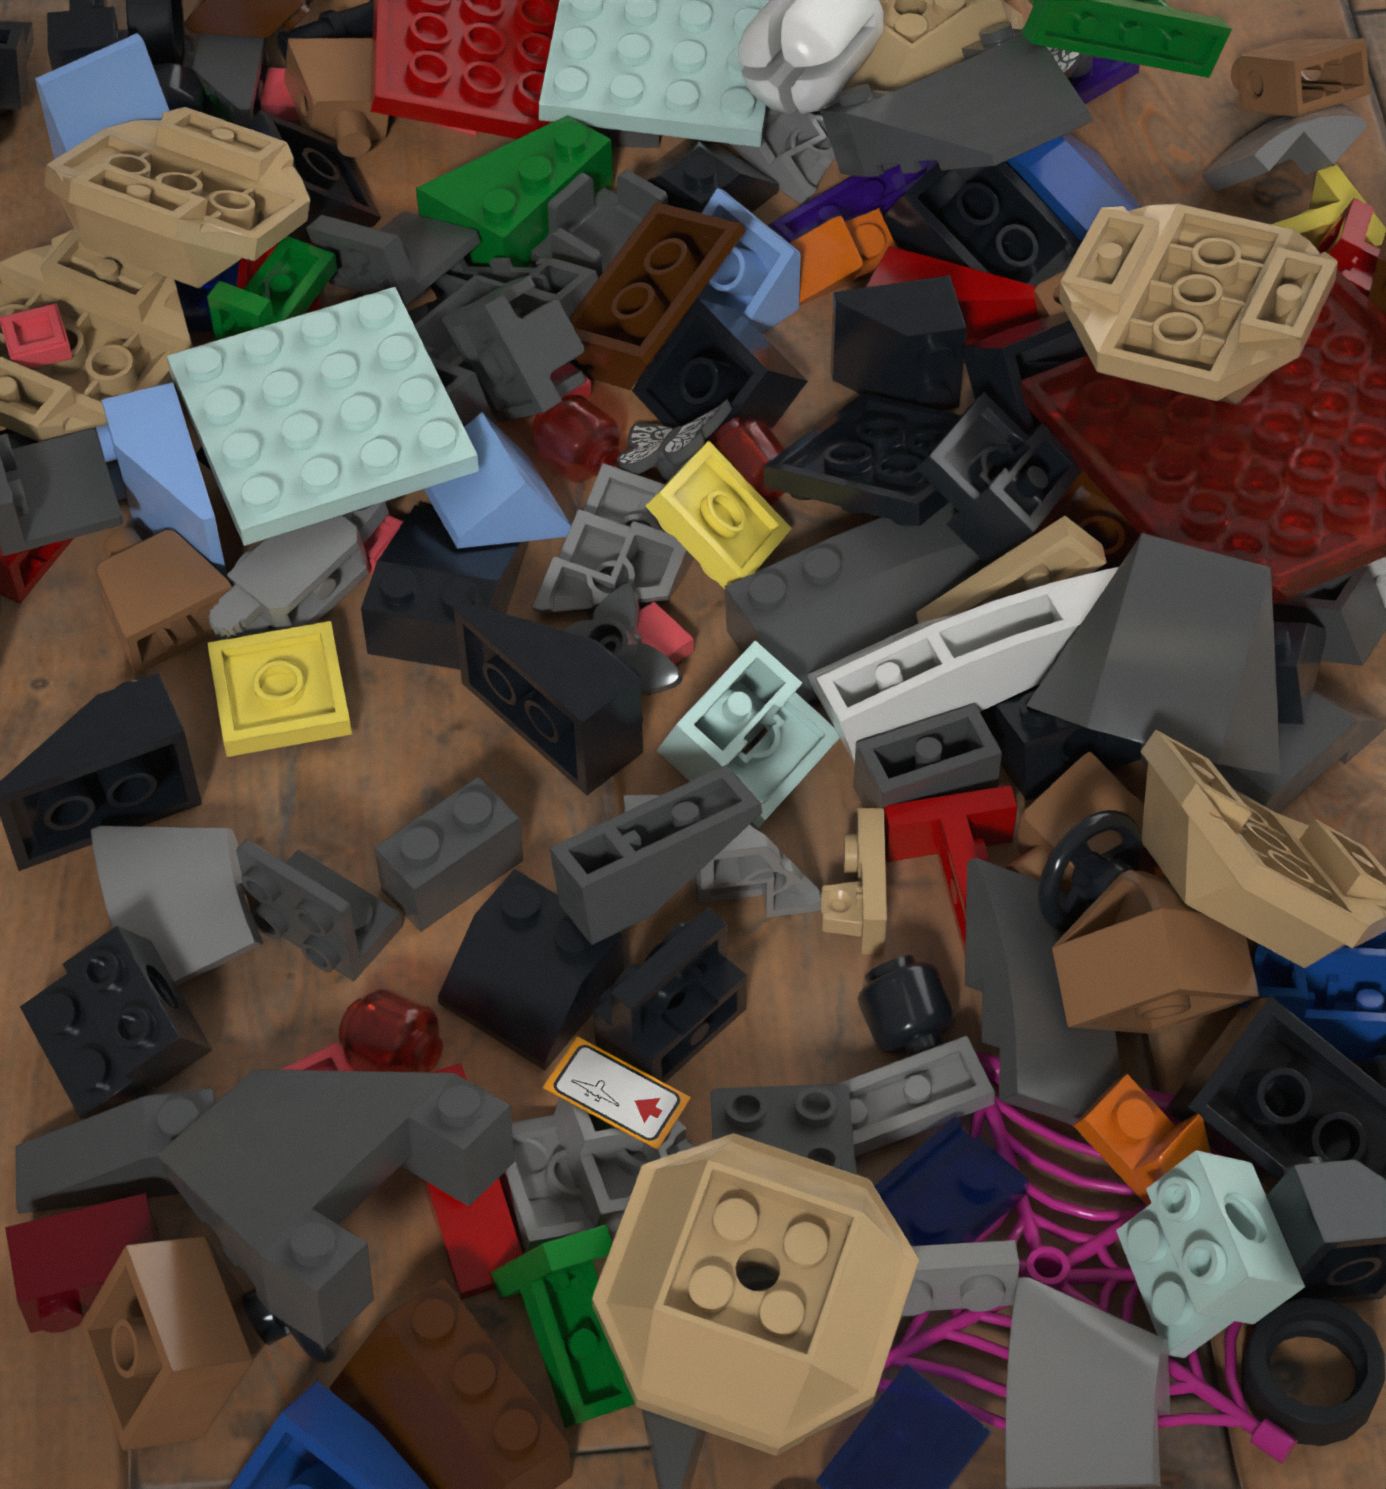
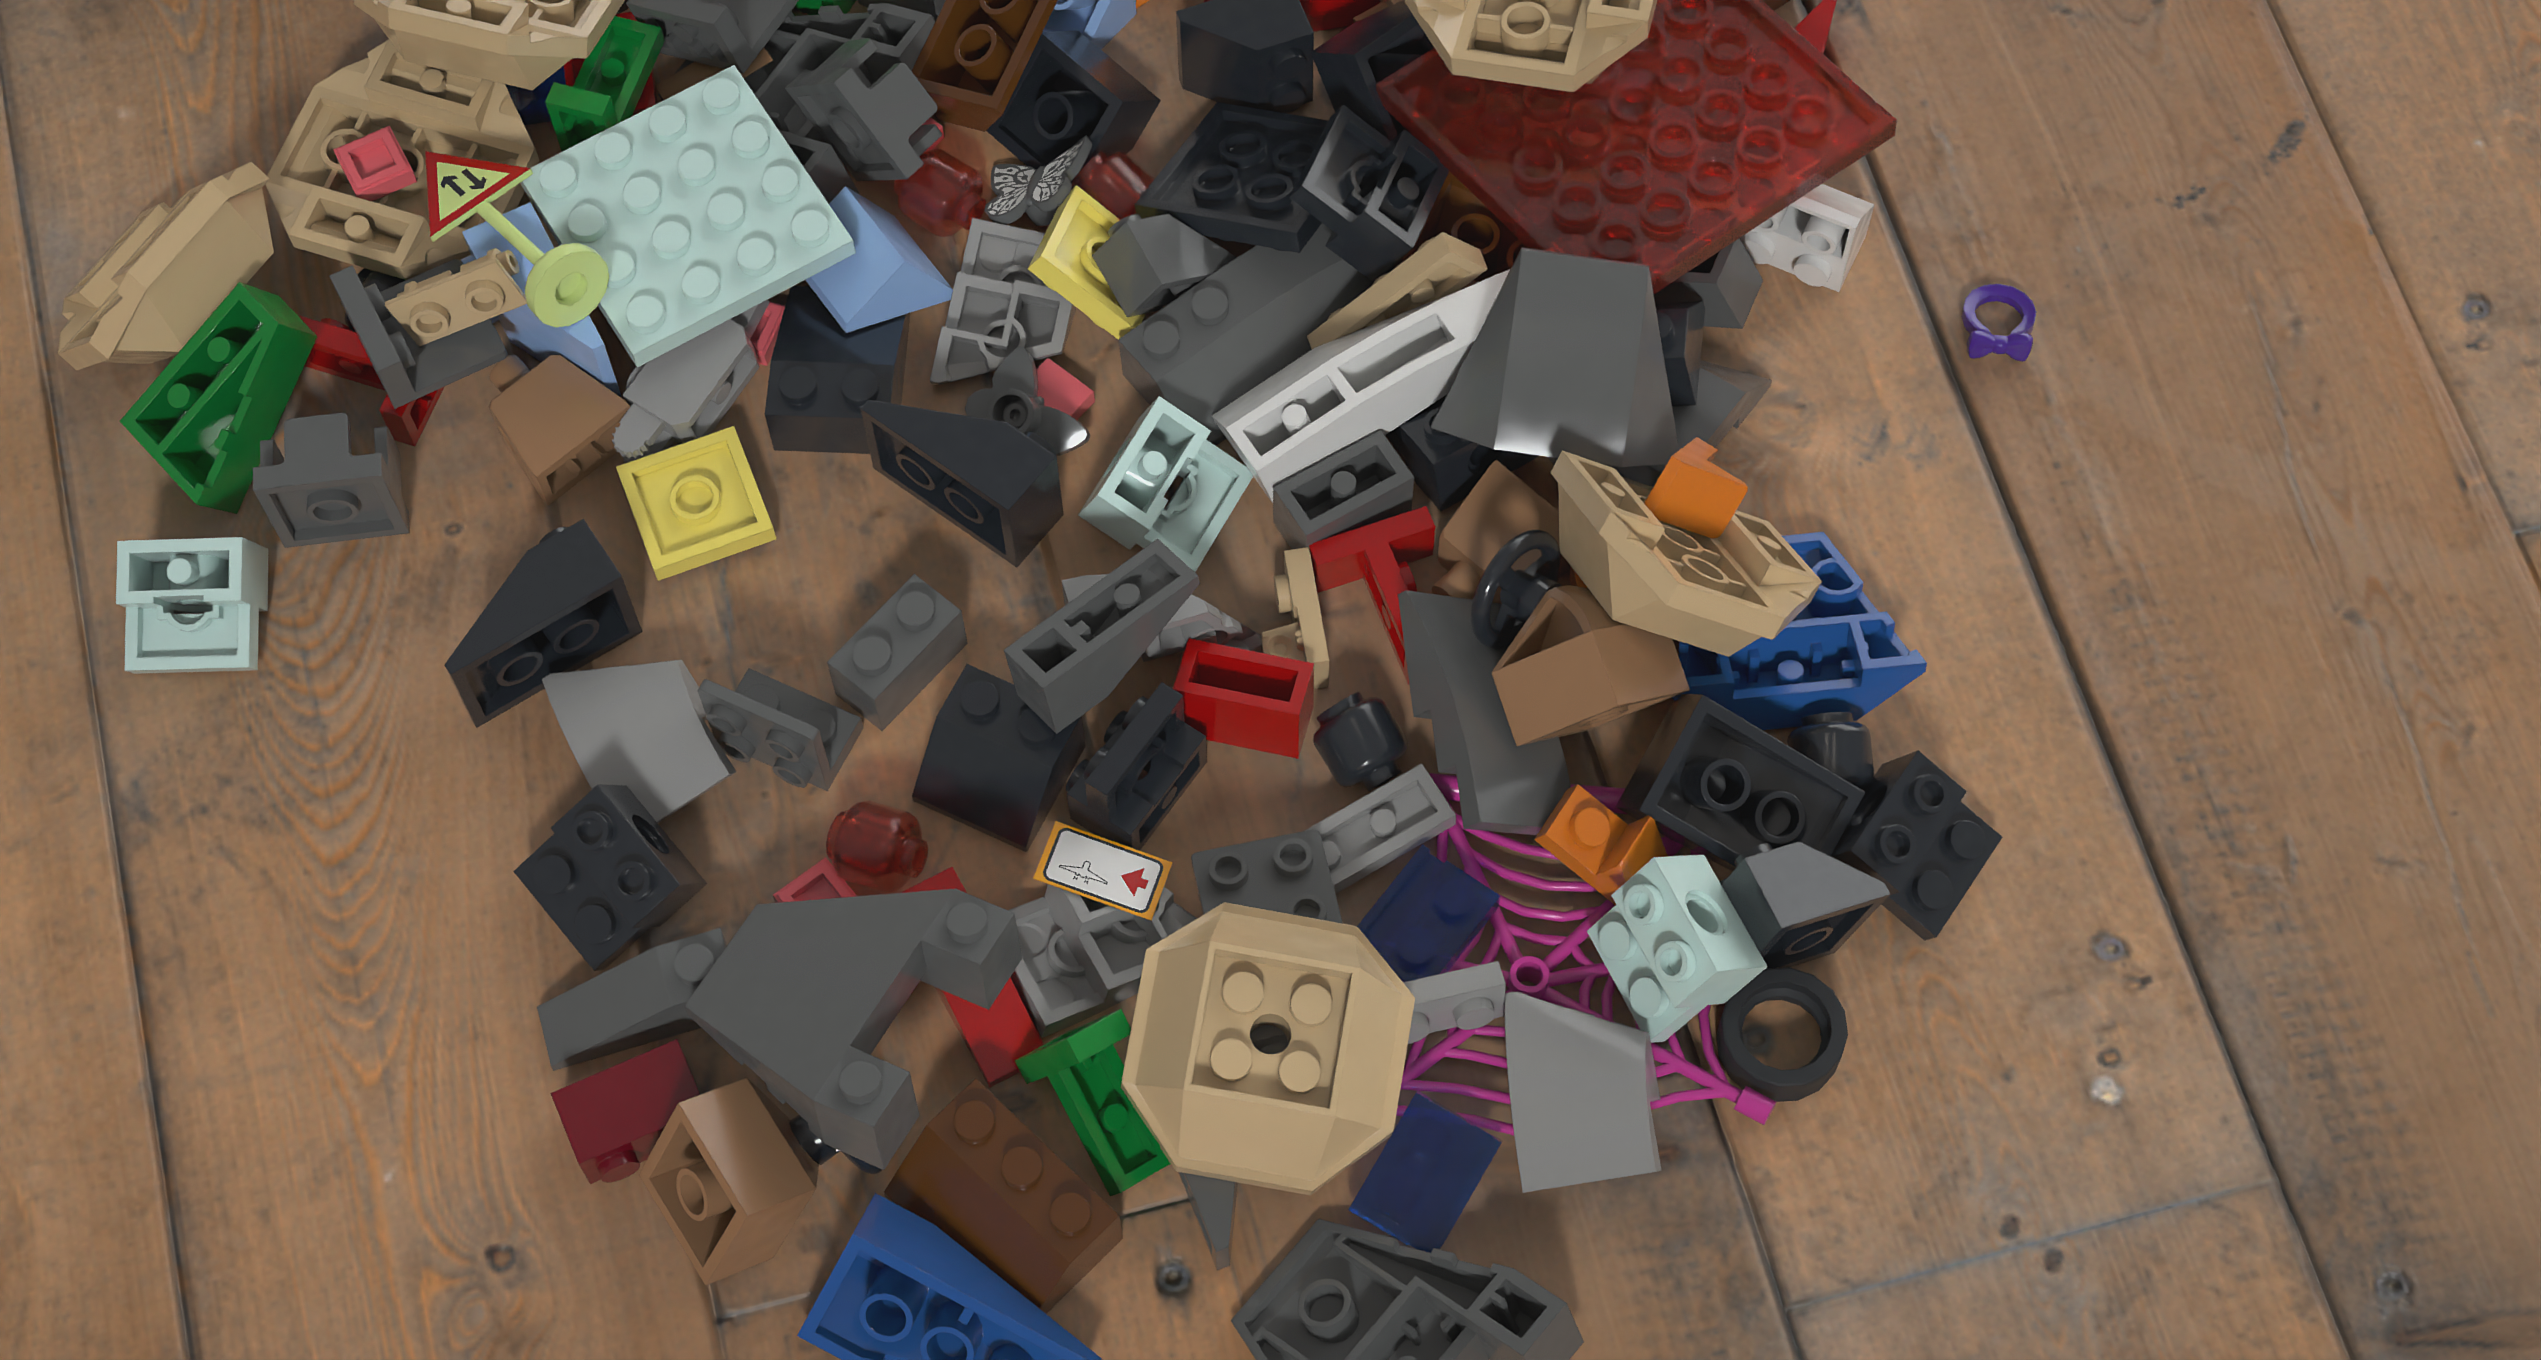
camera: 10 degrees left, 10 degrees up
(84, 457) = (460, 299): none -> tan hinge
(184, 450) = (563, 281): none -> yellowish green piece
(773, 518) = (1155, 261): none -> dark grey slope
(796, 944) = (1246, 697): none -> red brick
(1291, 798) = (1696, 492): none -> orange slope

